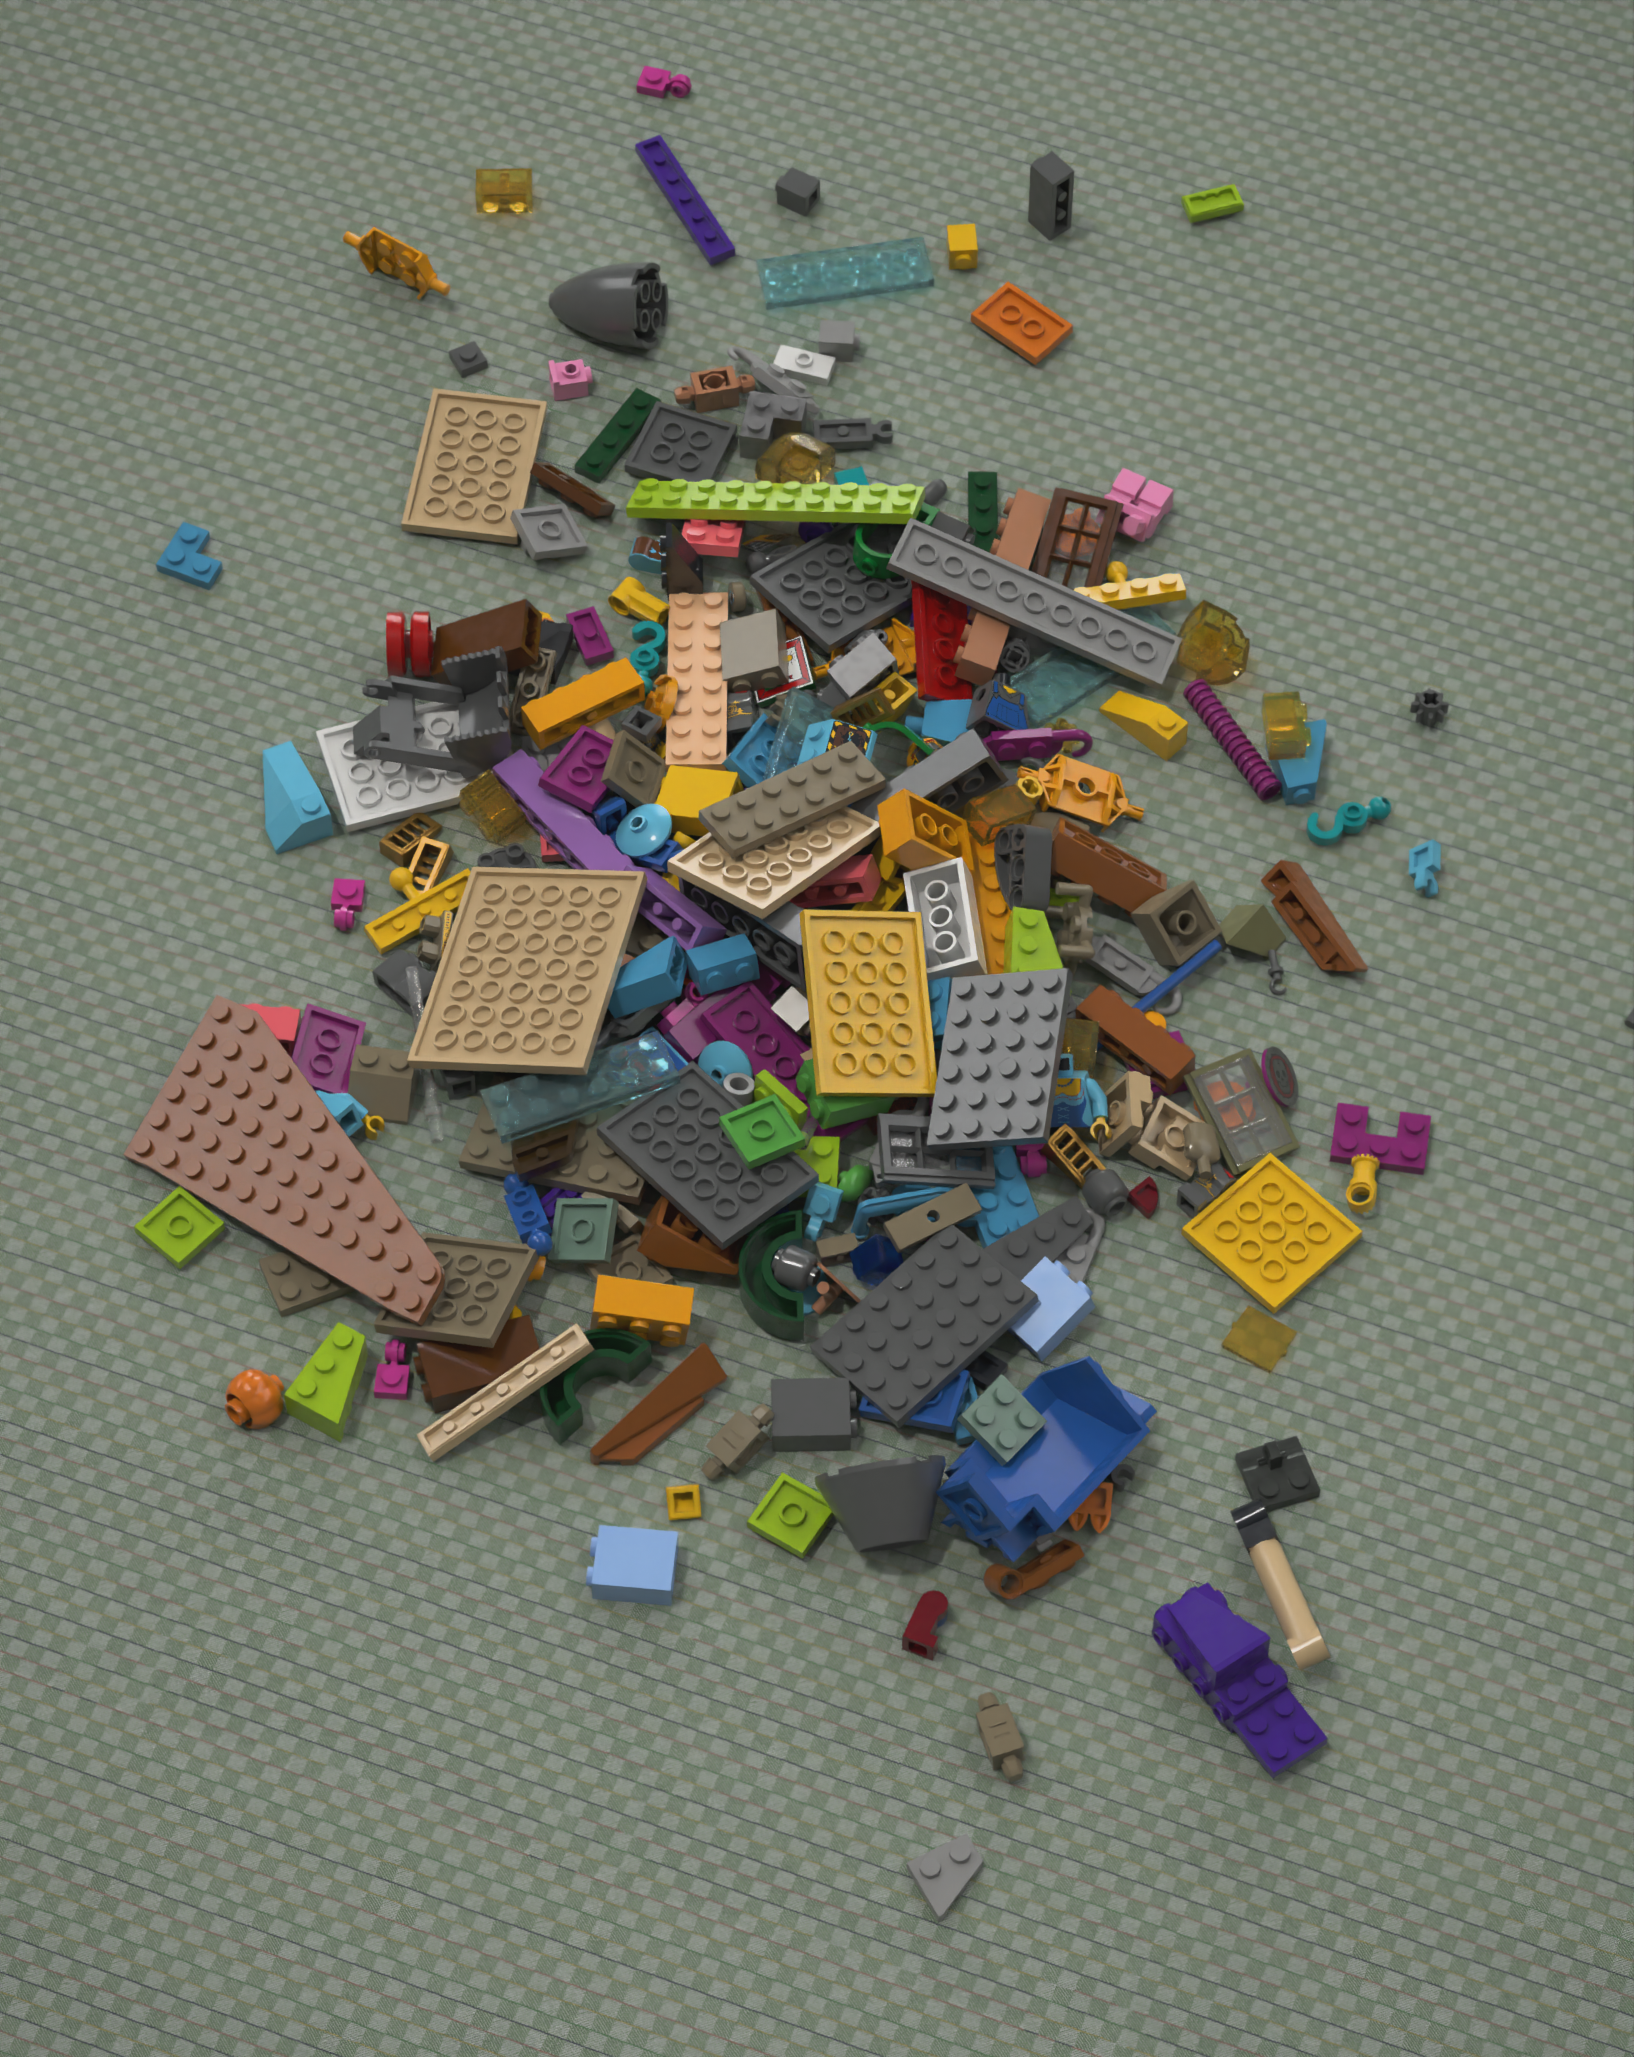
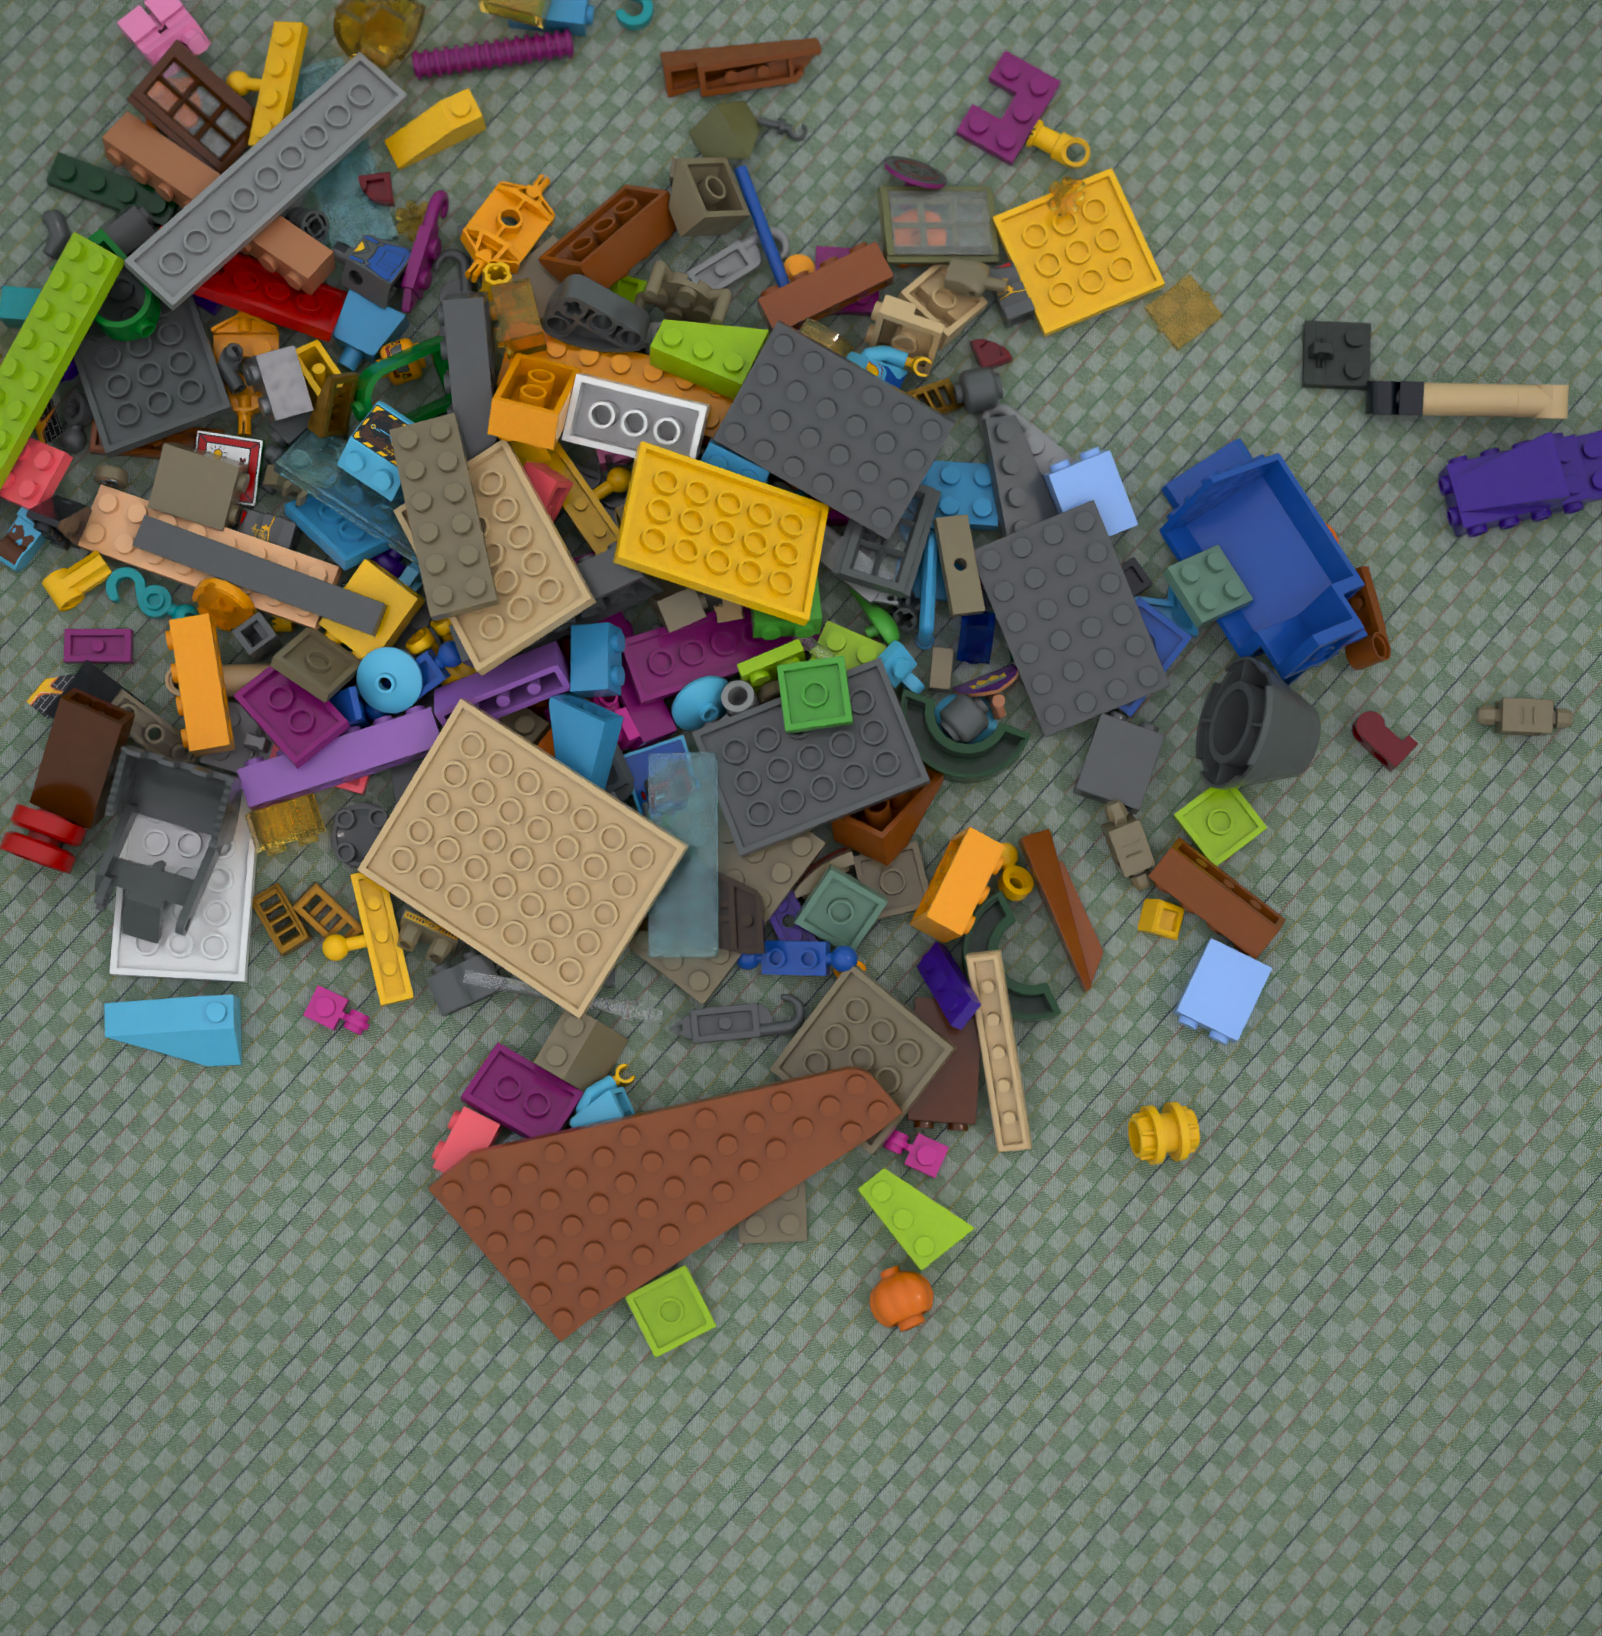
camera: 70 degrees left, 25 degrees up
(453, 1192) = (738, 1022): none -> dark grey plate
(481, 1551) = (1157, 1133): none -> yellow piece
(545, 1328) = (948, 985): none -> dark purple plate
(669, 1360) = (1015, 880): none -> yellow plate
(692, 711) = (260, 575): none -> dark grey tile
(718, 1529) = (1216, 898): none -> dark orange brick
(1071, 693) = (378, 188): none -> dark red tile
(1312, 1196) = (1065, 196): none -> clear yellow plant

